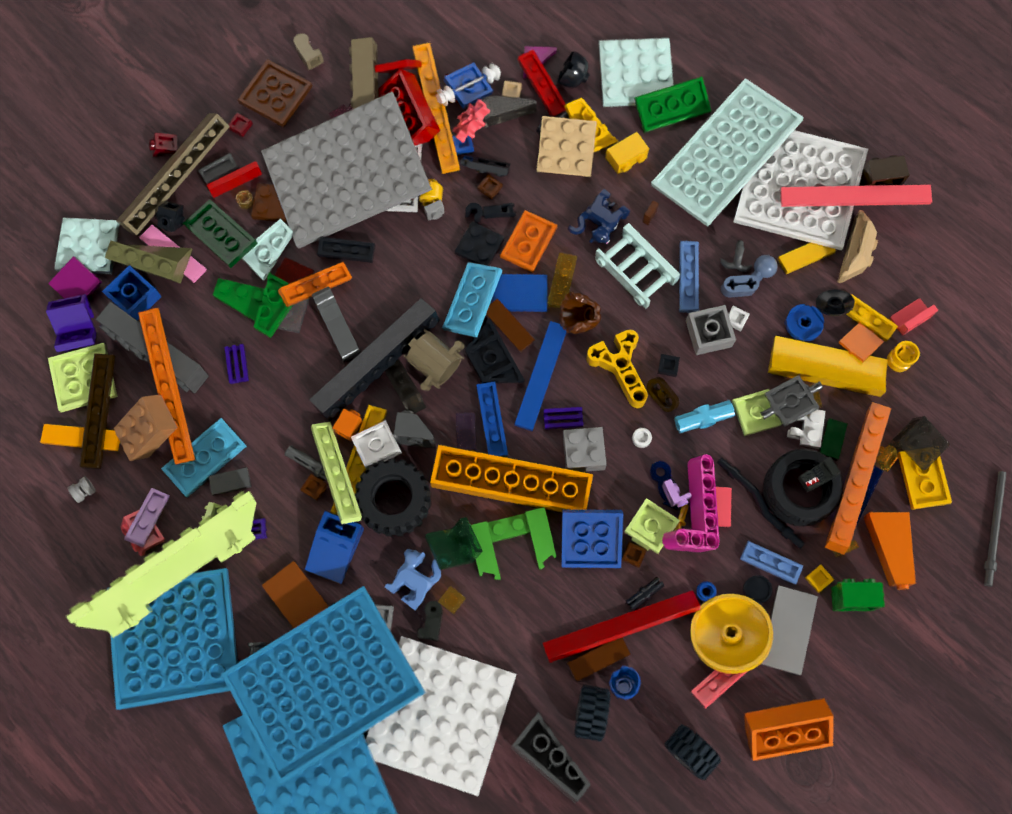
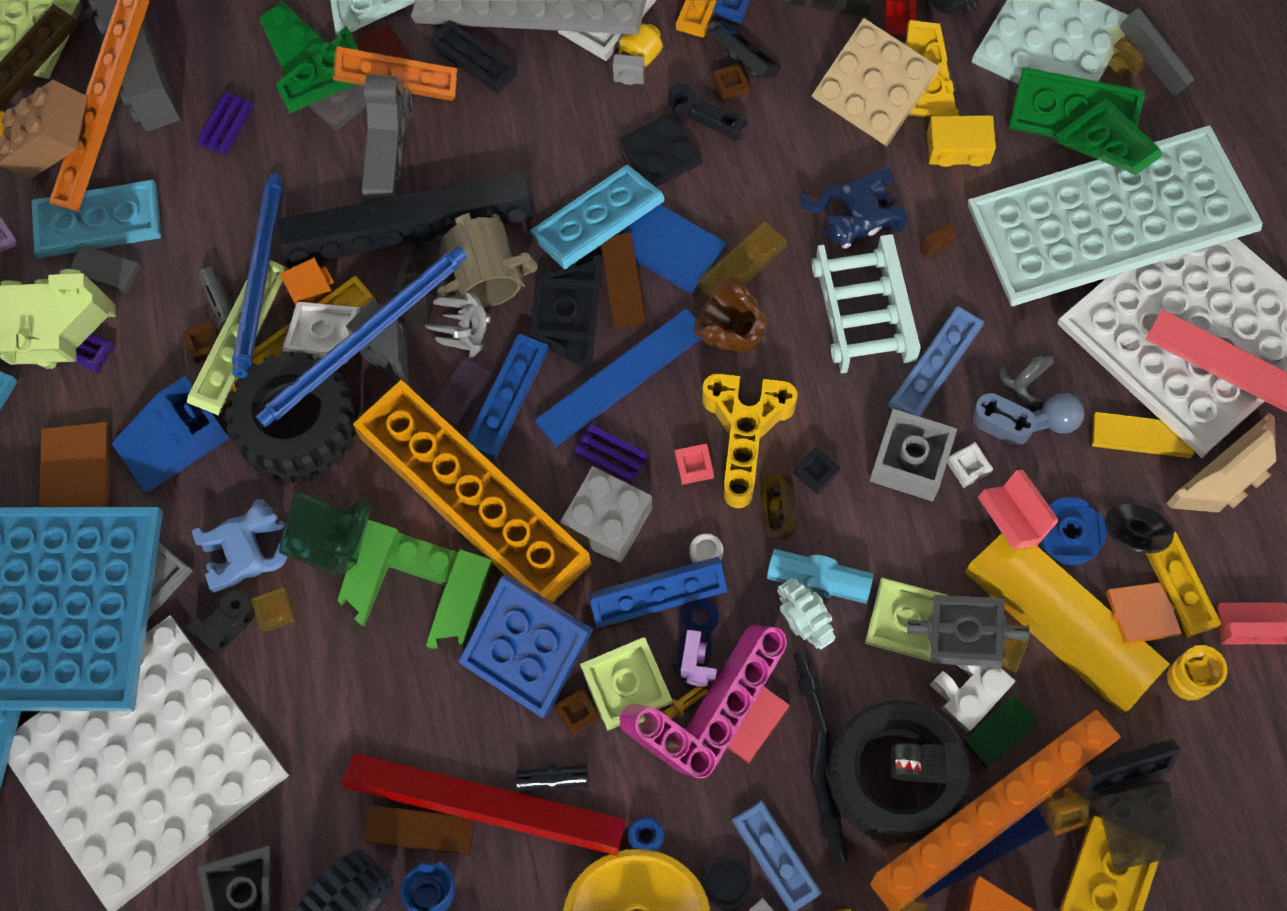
camera: 35 degrees right, 5 degrees down
(322, 436) = (257, 277): none -> blue piece
(407, 436) = (361, 337): none -> blue piece
(448, 389) = (462, 335): none -> light grey piece
(528, 241) = (734, 184): orange tile -> none
(608, 398) = (694, 464): none -> coral plate
(633, 472) = (657, 592): none -> blue plate
(679, 62) = (1125, 58): none -> clear yellow tile
(693, 52) = (1156, 52): none -> dark grey tile
(702, 111) = (1110, 138): none -> green wing
(713, 439) = (806, 613): none -> light aqua gear
(776, 327) = (1019, 511): none -> coral panel
(901, 420) = (1127, 768): none -> black plate

